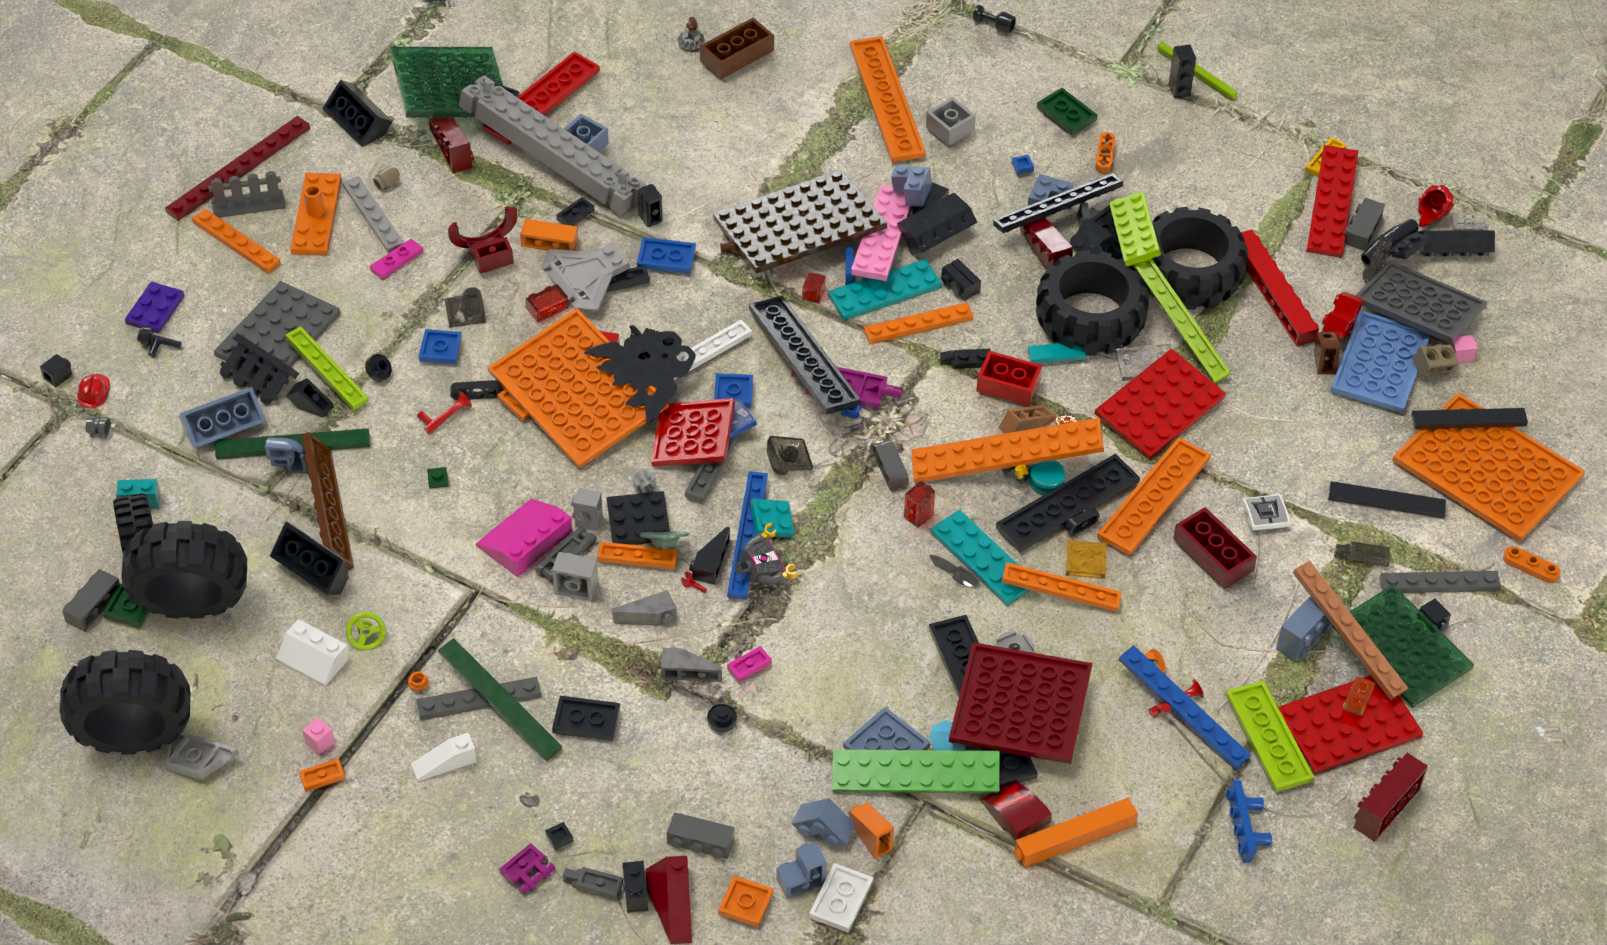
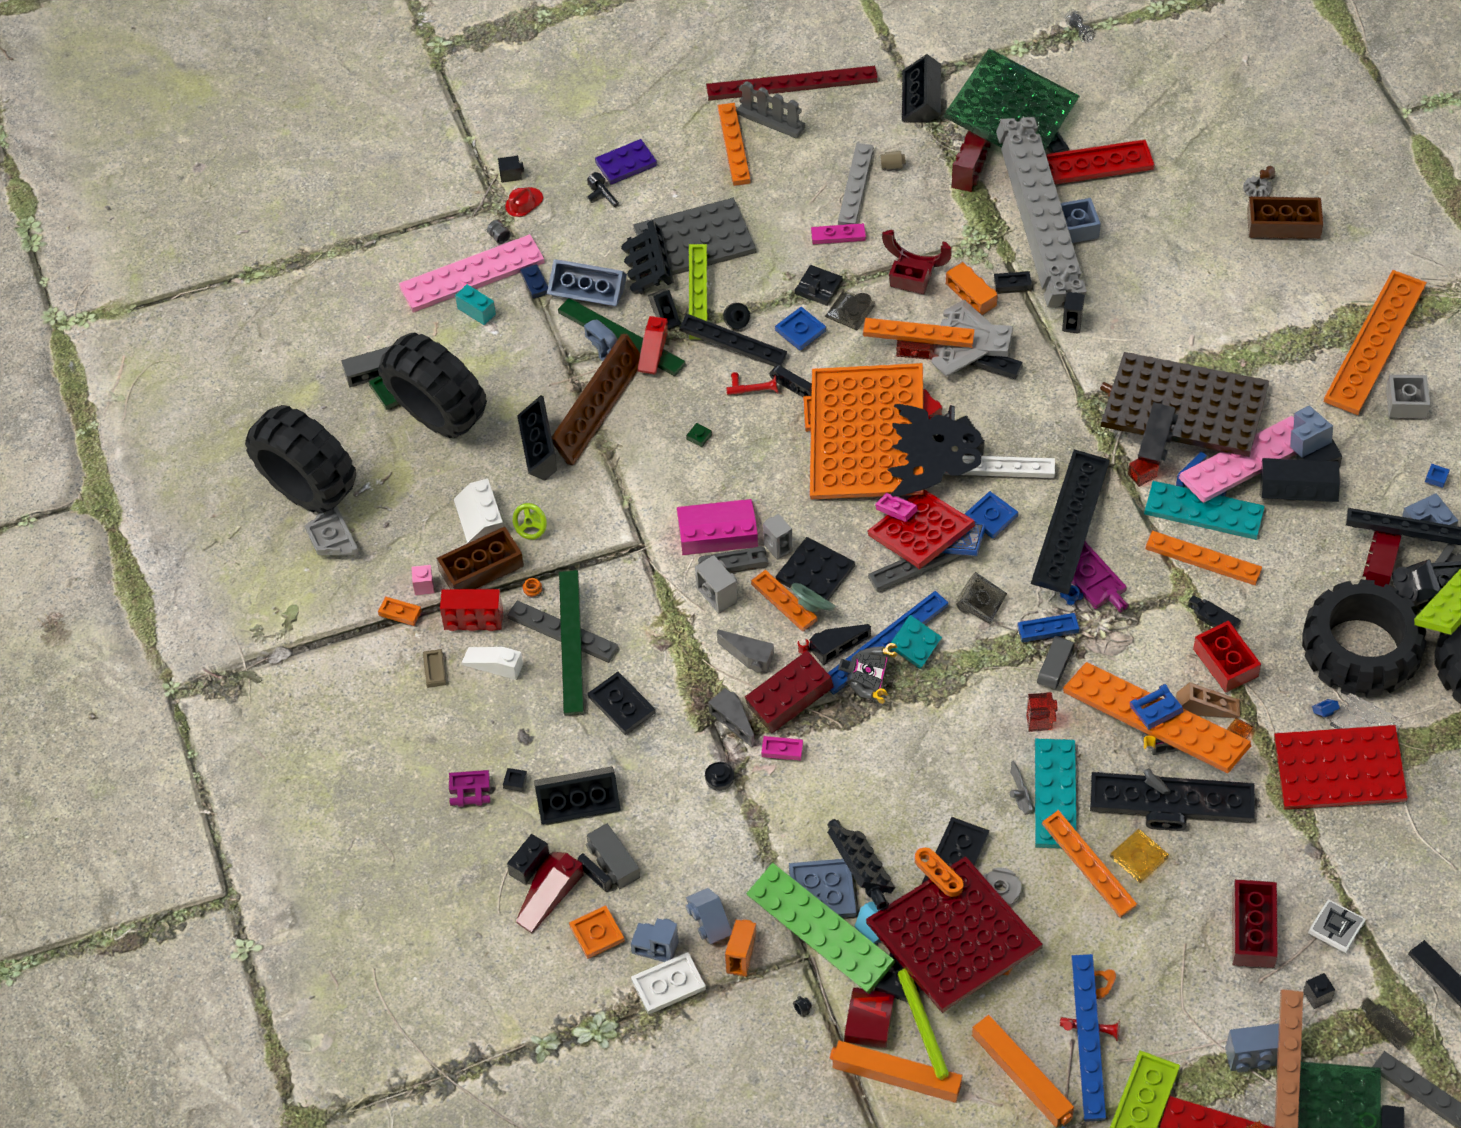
camera: 45 degrees right, 5 degrees up
(101, 475) = (475, 271): none -> bright pink plate
(131, 516) = (441, 322): black tyre -> none
(170, 446) = (534, 281): none -> dark blue plate
(316, 214) = (813, 157): orange plate -> none
(332, 430) = (653, 344): none -> slope
(356, 689) = (481, 561): none -> reddish brown brick
(389, 729) = (471, 609): none -> red brick
(394, 388) = (732, 340): none -> black tile
(398, 799) = (434, 668): none -> dark tan tile
(420, 306) = (818, 285): none -> black hinge
(545, 290) = (918, 332): none -> orange plate
(594, 881) = (504, 832): dark grey hinge -> none
(623, 811) = (577, 795): none -> black slope
(644, 481) = (845, 543): light grey gear -> none
(659, 428) = (896, 507): none -> dark pink plate
(666, 255) = (1050, 364): blue plate -> none
(701, 858) = (595, 873): none -> black tile
(716, 617) = (789, 692): none -> dark red brick
(809, 249) = (1157, 434): none -> black brick
(858, 443) = (1048, 627): none -> blue plate
(896, 697) = (862, 863): none -> black plate
(958, 838) = (802, 1006): none -> black plate
(960, 279) = (1275, 543): black brick -> none
(968, 664) = (937, 865): none -> orange plate
(1011, 441) = (1159, 711): none -> blue plate
(1046, 476) = (1175, 763): teal head -> none
(1049, 498) = (1155, 782): none -> dark grey bar
(1054, 353) = (1292, 661): teal tile -> none
(1065, 782) = (923, 1024): none -> lime axle
(1109, 369) = (1326, 707): none -> blue plate
(1153, 496) = (1252, 843): orange plate -> none
(1163, 765) = (1023, 1071): none -> orange brick
(1182, 320) = (1428, 707): lime plate -> none
(1299, 557) = (1319, 990): none -> black brick

